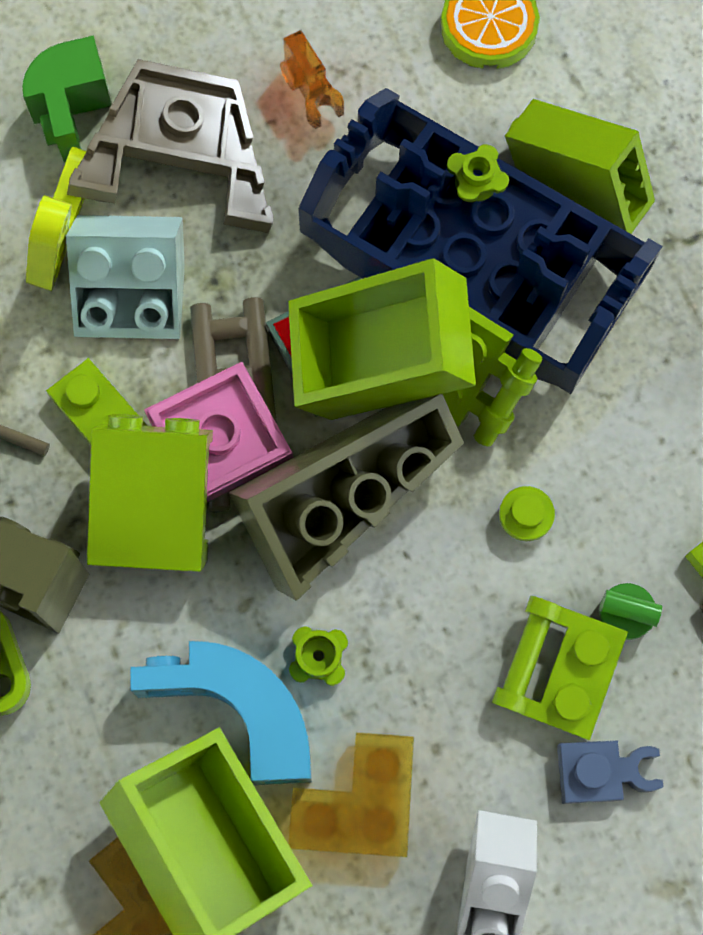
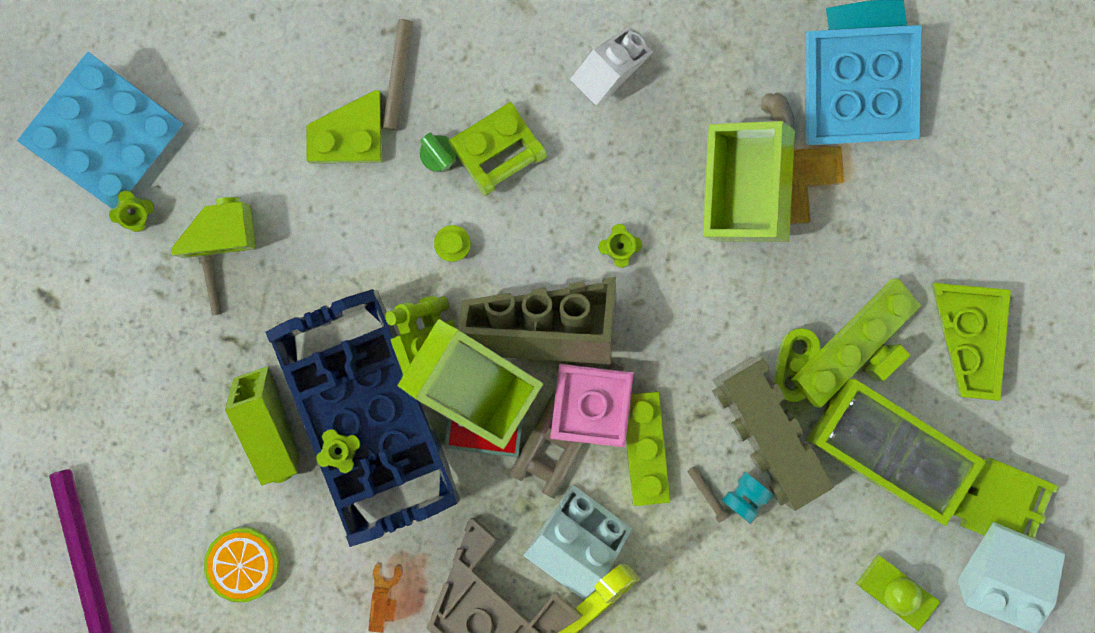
camera: 145 degrees left, 15 degrees up
(148, 494) = (654, 393): lime panel -> none
(270, 713) = (670, 248): medium azure arch -> none
(370, 817) = (651, 143): clear yellow plate -> none
(596, 771) = (516, 84): sand blue plate -> none

